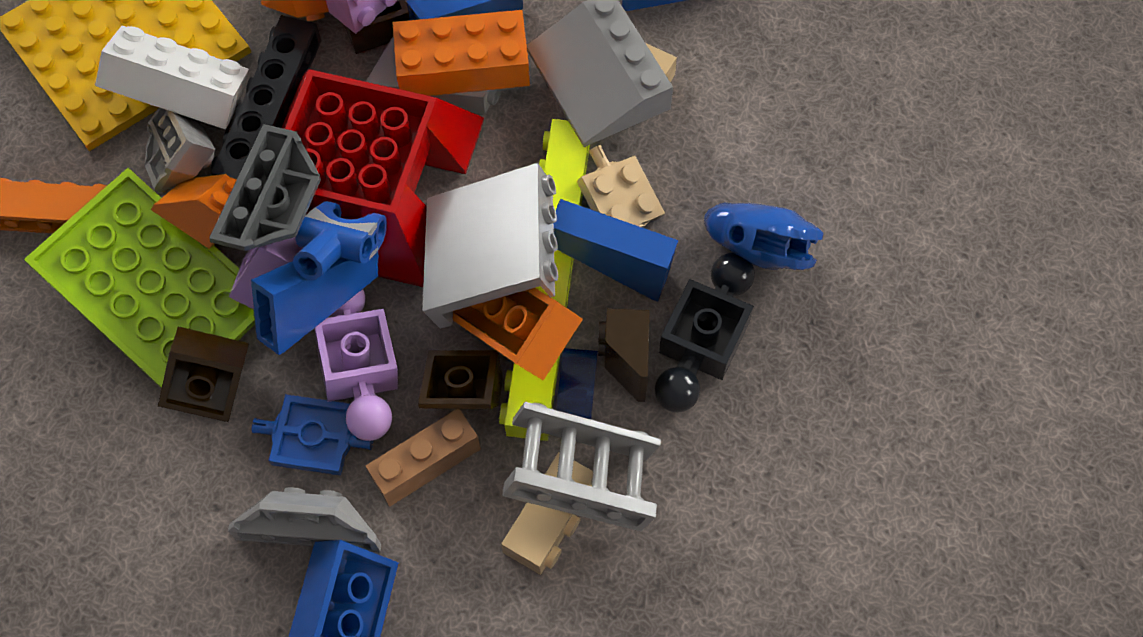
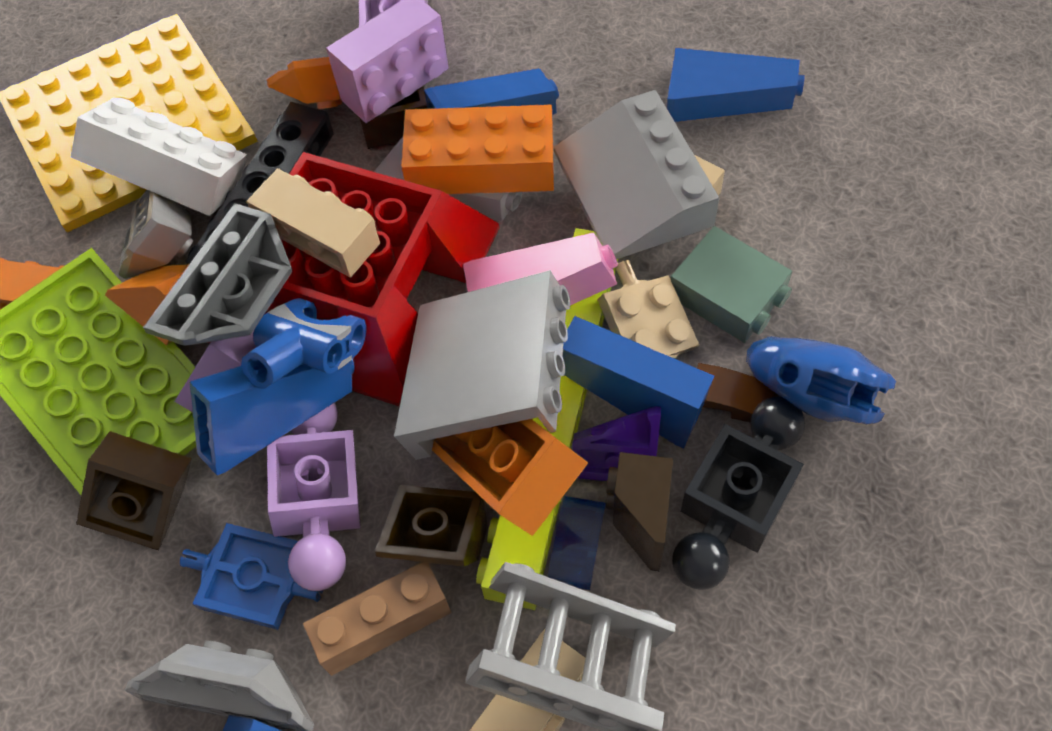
camera: 10 degrees right, 5 degrees down
(334, 133) = (317, 221): none -> tan brick
(556, 151) = (575, 262): none -> bright pink slope
(592, 302) = (603, 443): none -> dark purple wing
(688, 158) = (731, 284): none -> sand green brick
(695, 251) = (734, 392): none -> reddish brown slope

